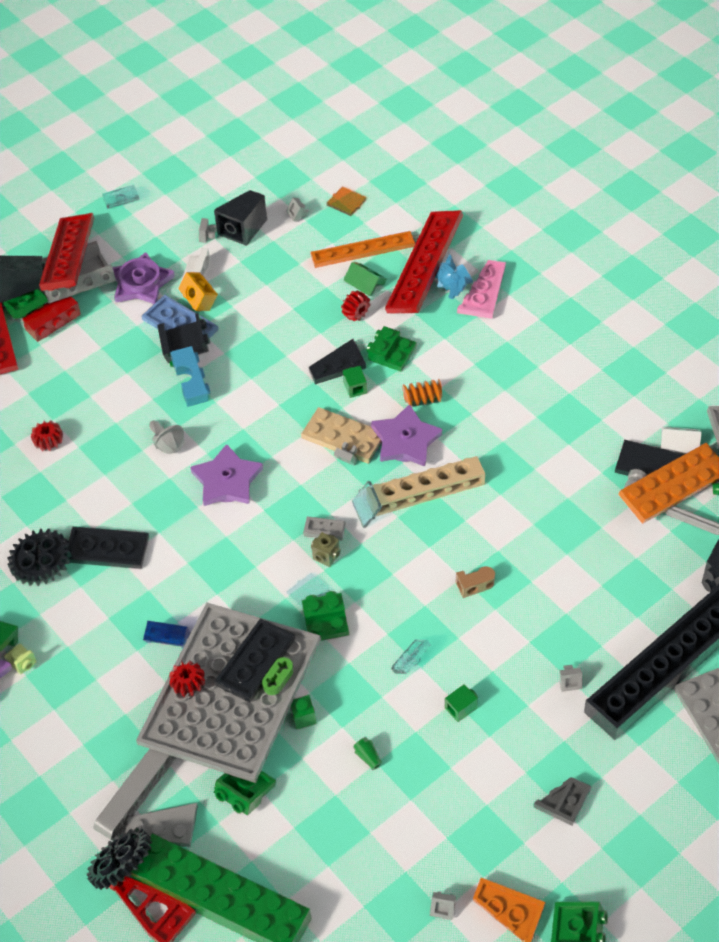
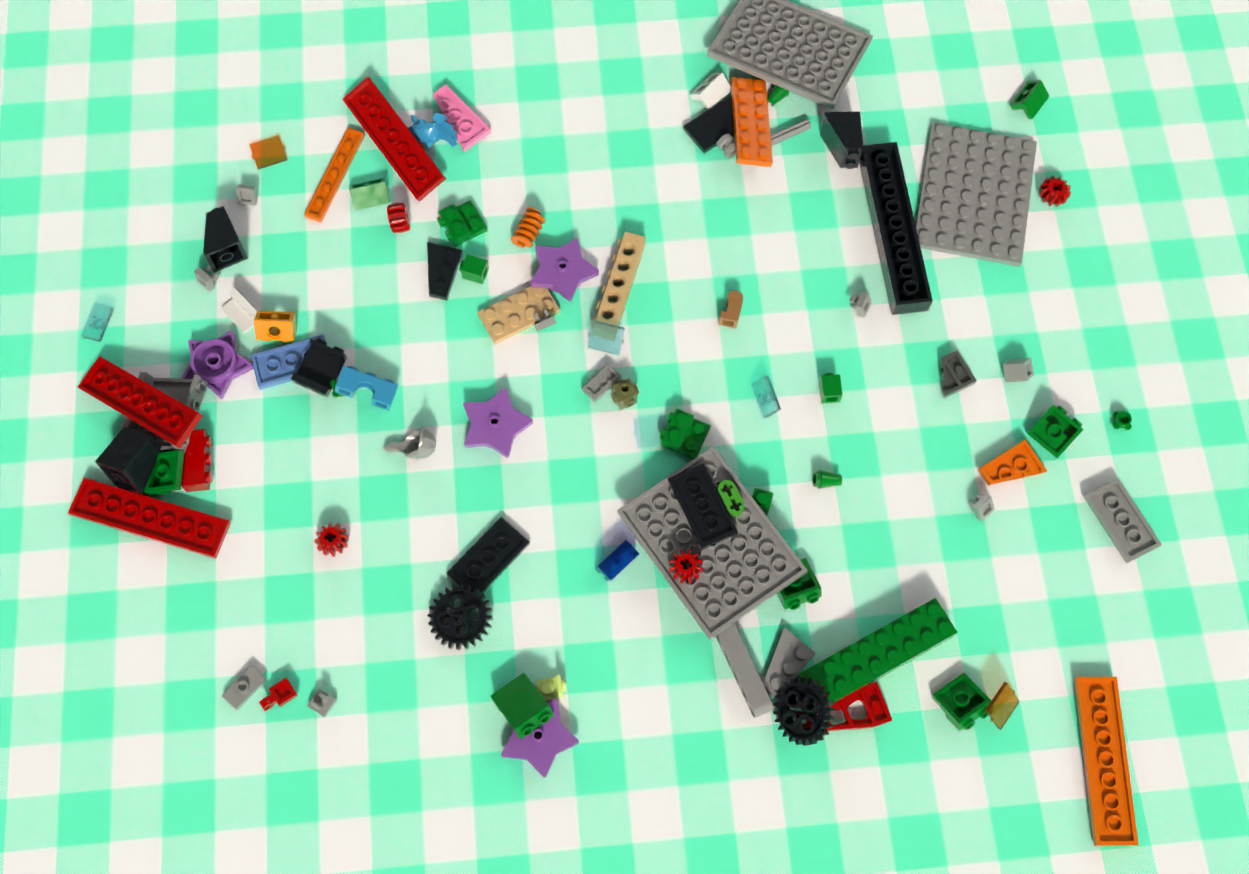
camera: 60 degrees left, 15 degrees up
(618, 855) = (1018, 369): none -> light grey panel

